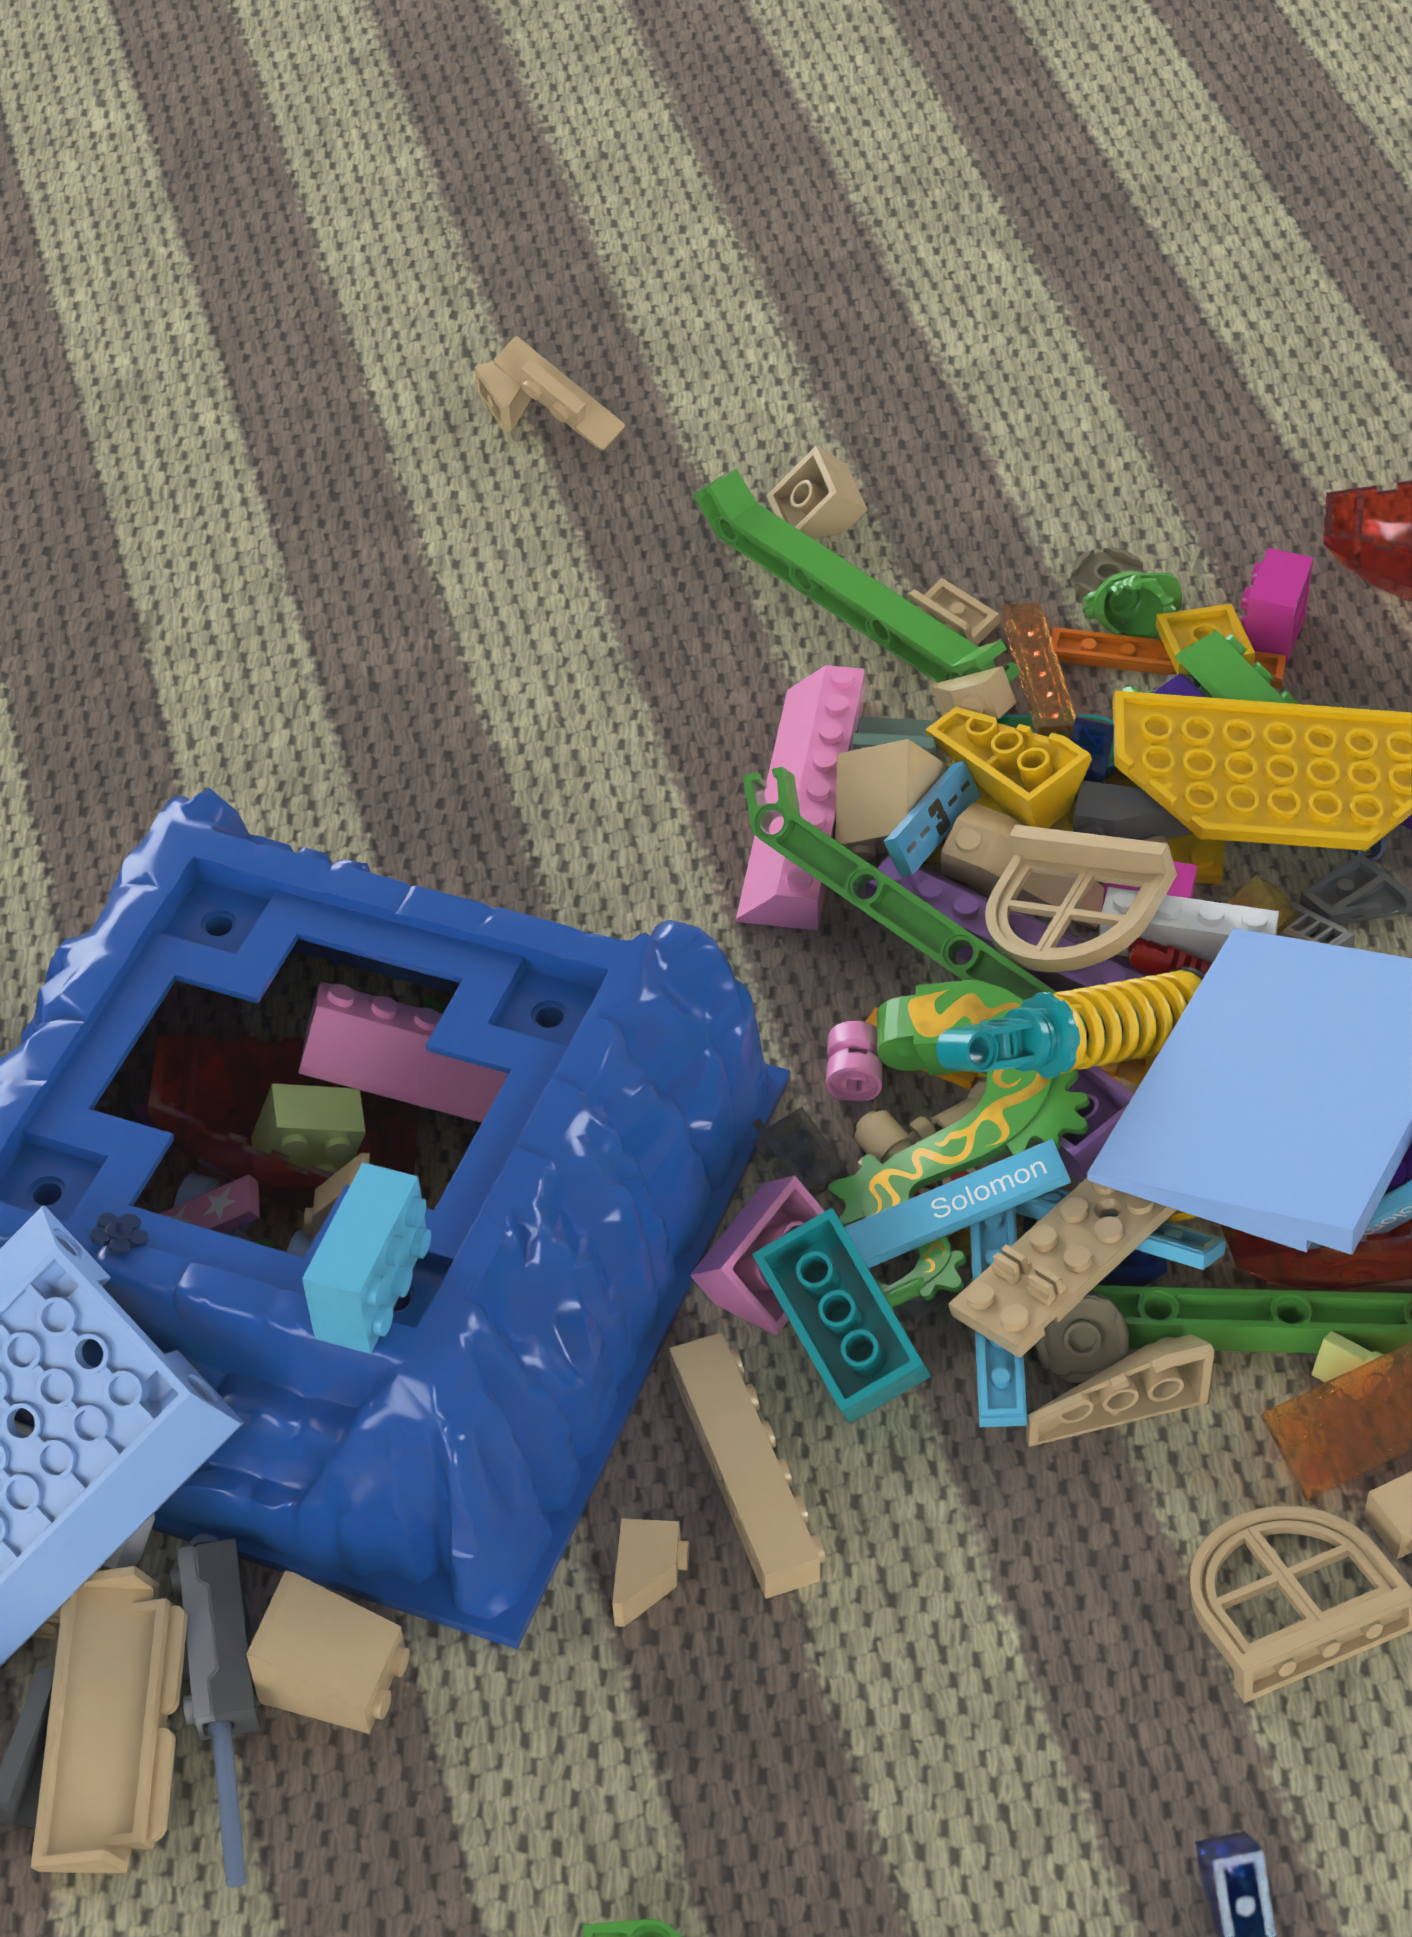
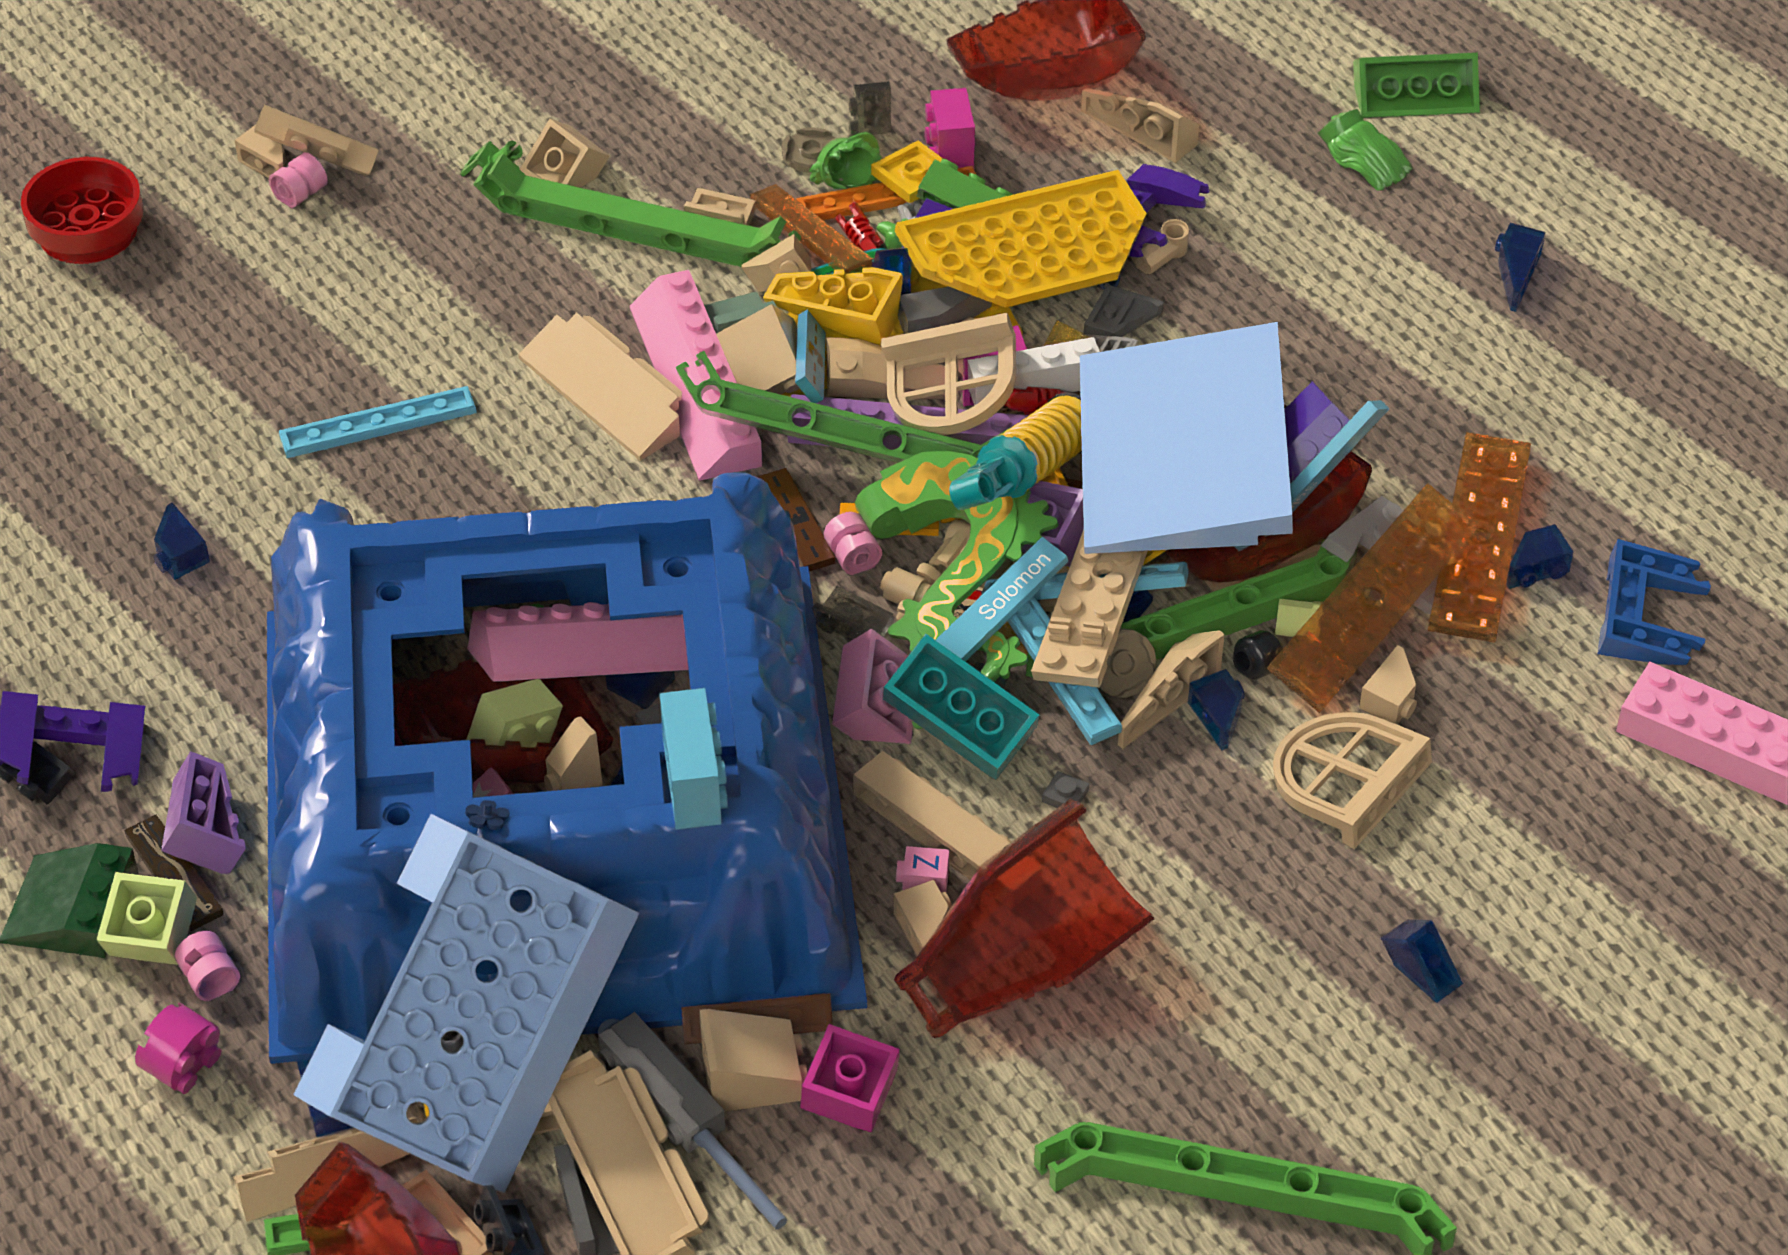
camera: 30 degrees left, 0 degrees up
(129, 791) = (178, 544): none -> clear blue slope
(273, 392) = (83, 209): none -> red wheel
(423, 1619) = (806, 1013): none -> reddish brown tile
(425, 1732) = (849, 1078): none -> dark pink brick
(430, 728) = (377, 422): none -> medium azure tile
(521, 430) = (297, 181): none -> bright pink wheel
(685, 1500) = (923, 866): none -> bright pink brick
(698, 776) = (606, 384): none -> tan slope
(744, 1625) = (1023, 924): none -> clear red windscreen
(748, 470) = (489, 153): none -> bright green bracket
(812, 1008) = (811, 544): none -> reddish brown tile
(921, 1474) = (1064, 788): none -> dark grey plate
(1101, 686) = (859, 229): none -> red hinge
(1177, 1439) = (1217, 704): none -> clear blue slope
(1195, 549) = (870, 108): none -> clear smoke bracket
(1262, 1388) = (1255, 653): none -> black head

